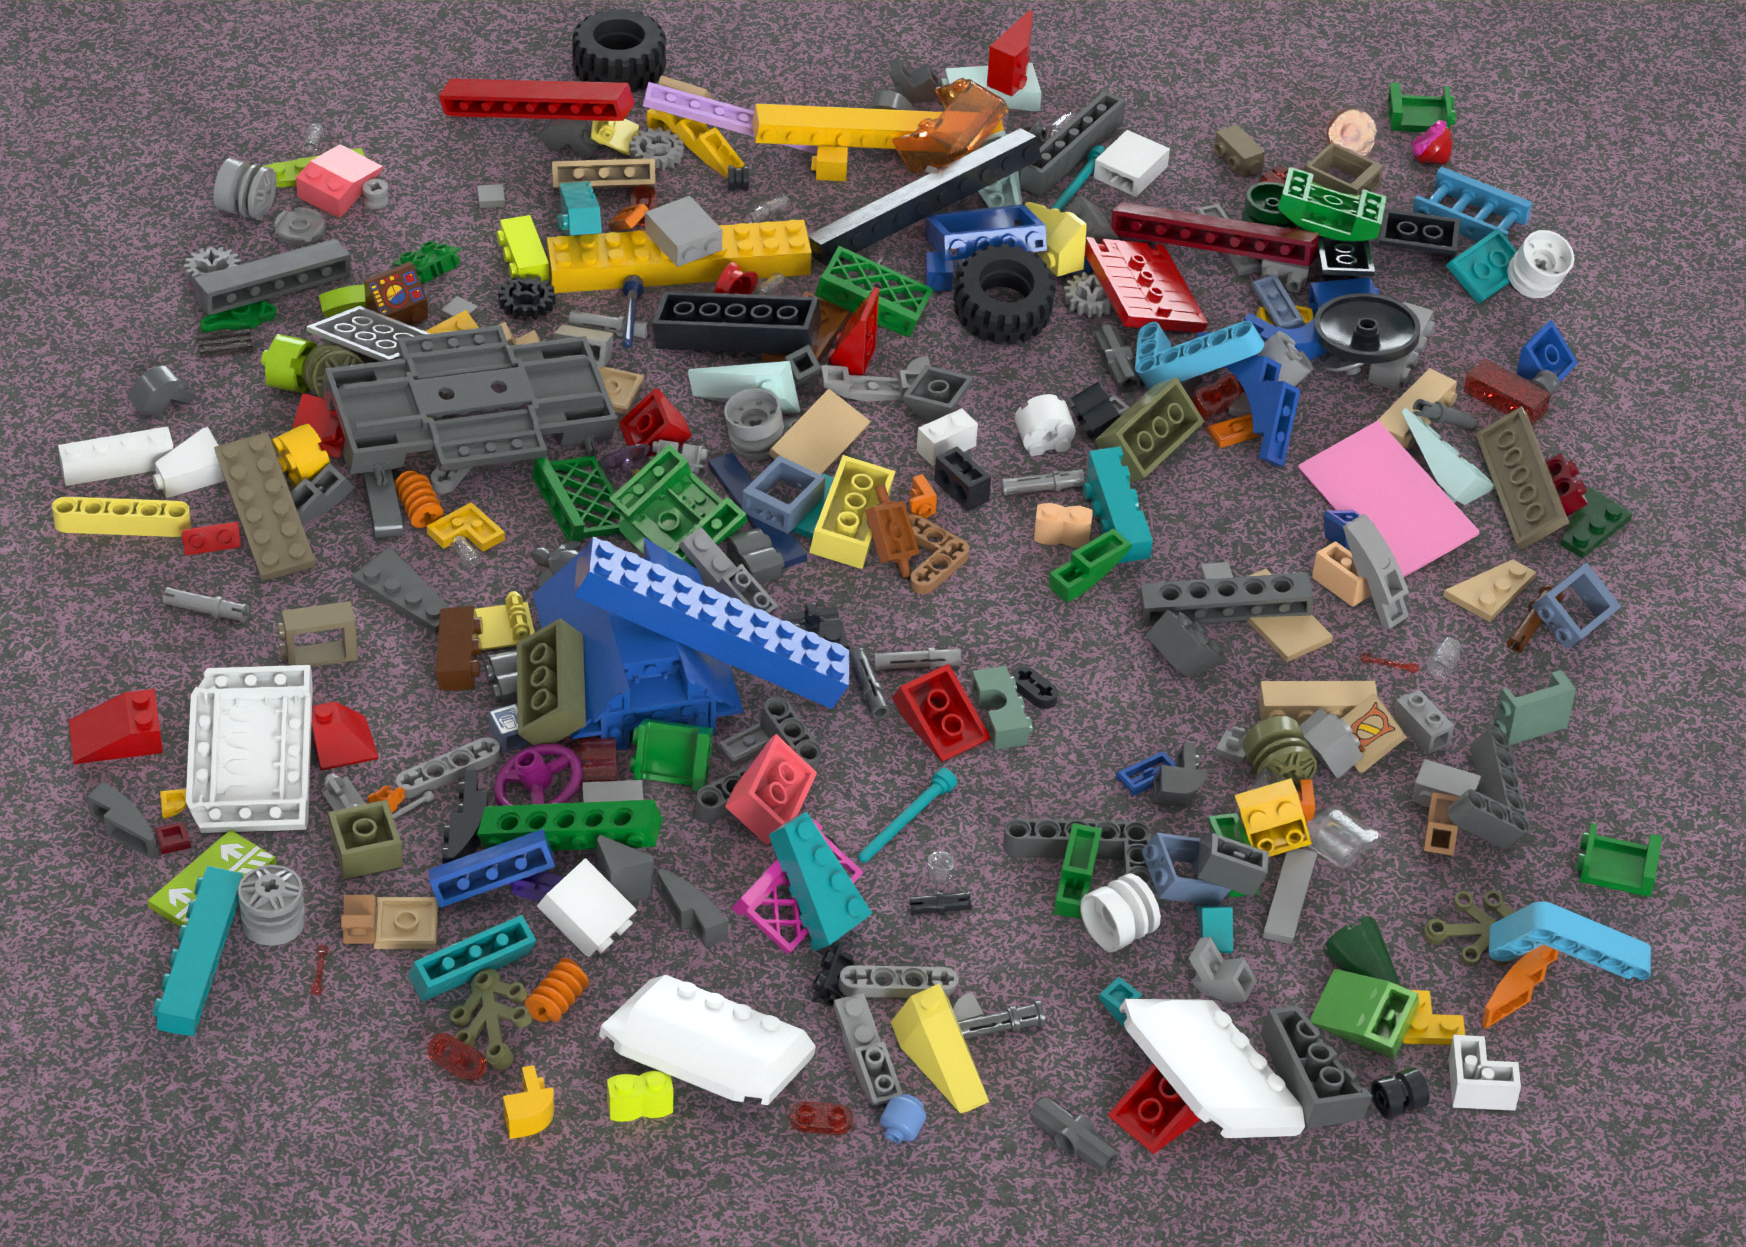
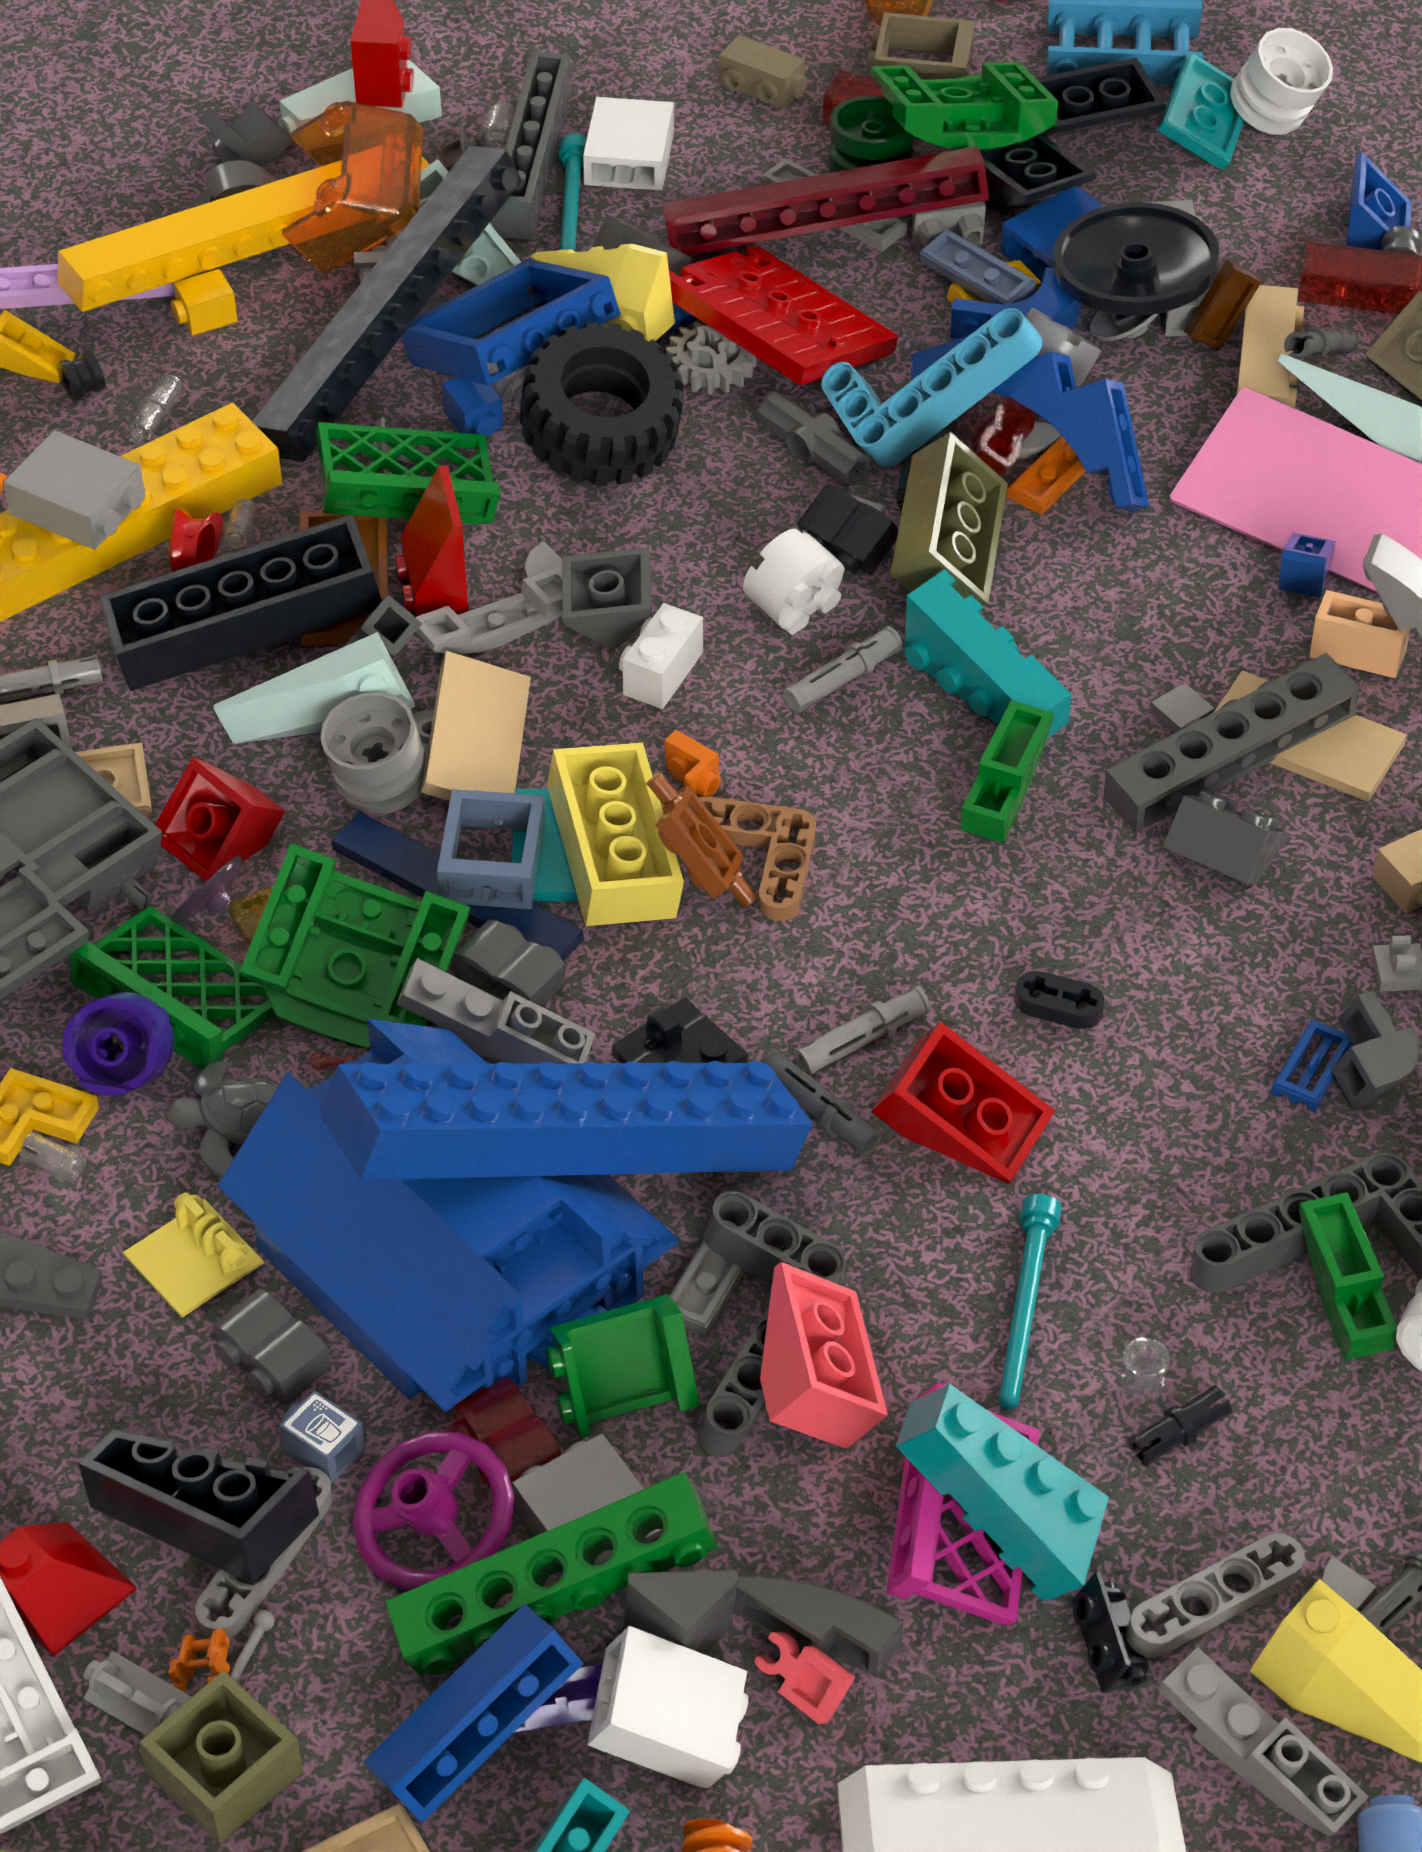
camera: 25 degrees left, 5 degrees up
(428, 727) = (199, 1503): none -> black wedge
(458, 648) = (154, 1332): reddish brown brick -> none
(464, 824) = (364, 1642): black slope -> none
(528, 509) = (99, 1062): none -> dark purple brick
(551, 684) = (363, 1335): olive brick -> none
(633, 289) = (35, 611): dark blue piece -> none
(669, 931) = (811, 1677): none -> coral plate
(692, 453) = (267, 855): light grey hinge -> none
(962, 478) = (733, 712): black brick -> none
(998, 690) = (1016, 1029): sand green arch -> none
(1062, 525) = (924, 724): light nougat brick -> none
(1403, 373) = (1223, 305): none -> reddish brown tile

